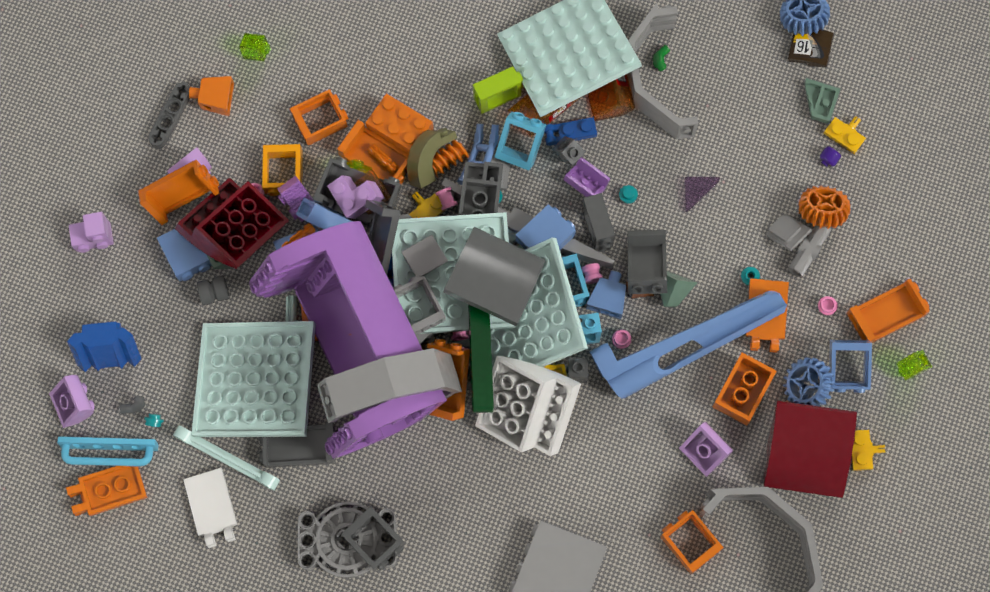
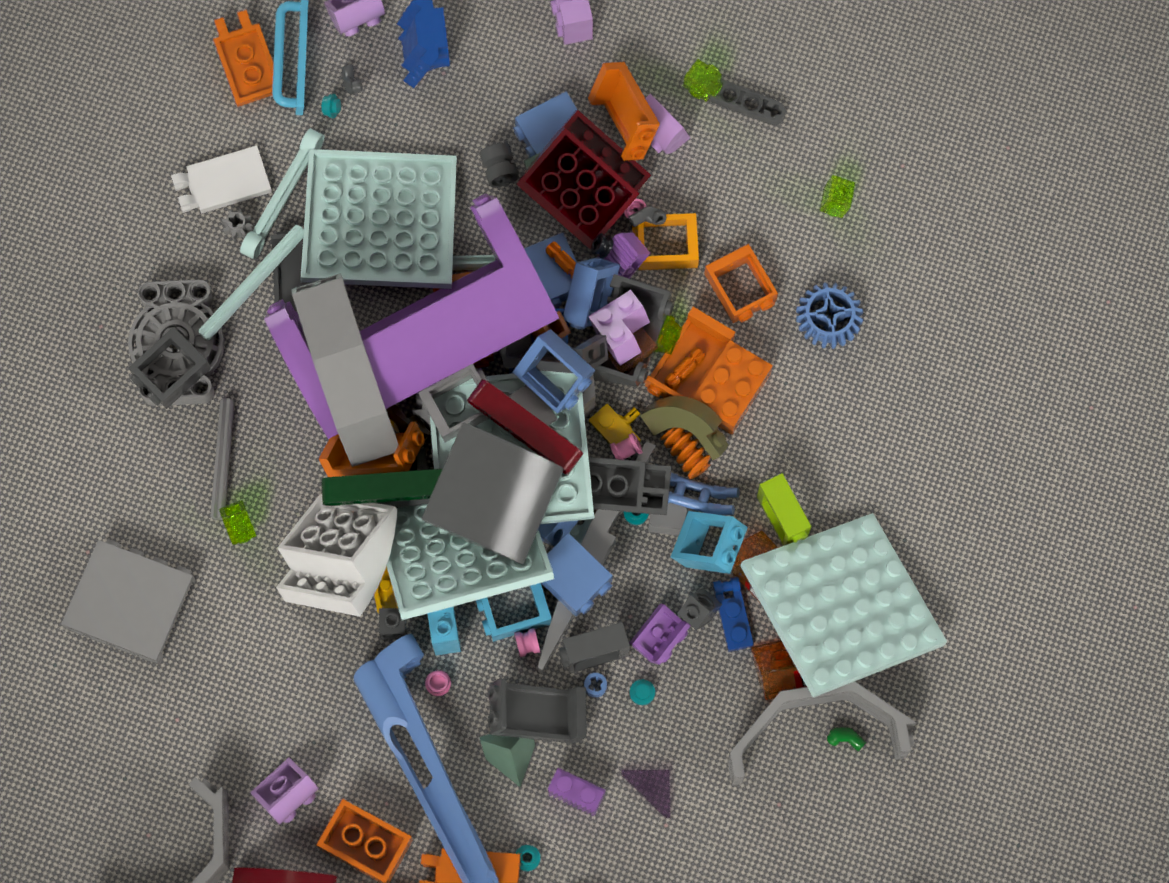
camera: 85 degrees right, 0 degrees up
(155, 137) = (703, 80): none -> clear neon green brick
(214, 94) = (769, 152): orange torso -> none
(253, 498) = (241, 229): none -> light grey gear
(263, 177) = (648, 214): none -> dark grey arm
(288, 209) = (601, 245): none -> black bush
(303, 476) = (252, 282): none -> light aqua axle
(331, 56) = (840, 313): none -> medium blue gear
(408, 242) = (540, 384): none -> medium blue window
(440, 255) = (524, 426): none -> dark red beam
(443, 502) = (222, 457): none -> light grey axle
(497, 487) = (237, 522): none -> clear neon green brick
(608, 296) = (495, 661): medium blue torso -> none
(621, 232) = (603, 686): none -> medium blue bush
(684, 518) = (148, 754): orange window -> none
(703, 239) = (576, 791): none -> medium lavender brick

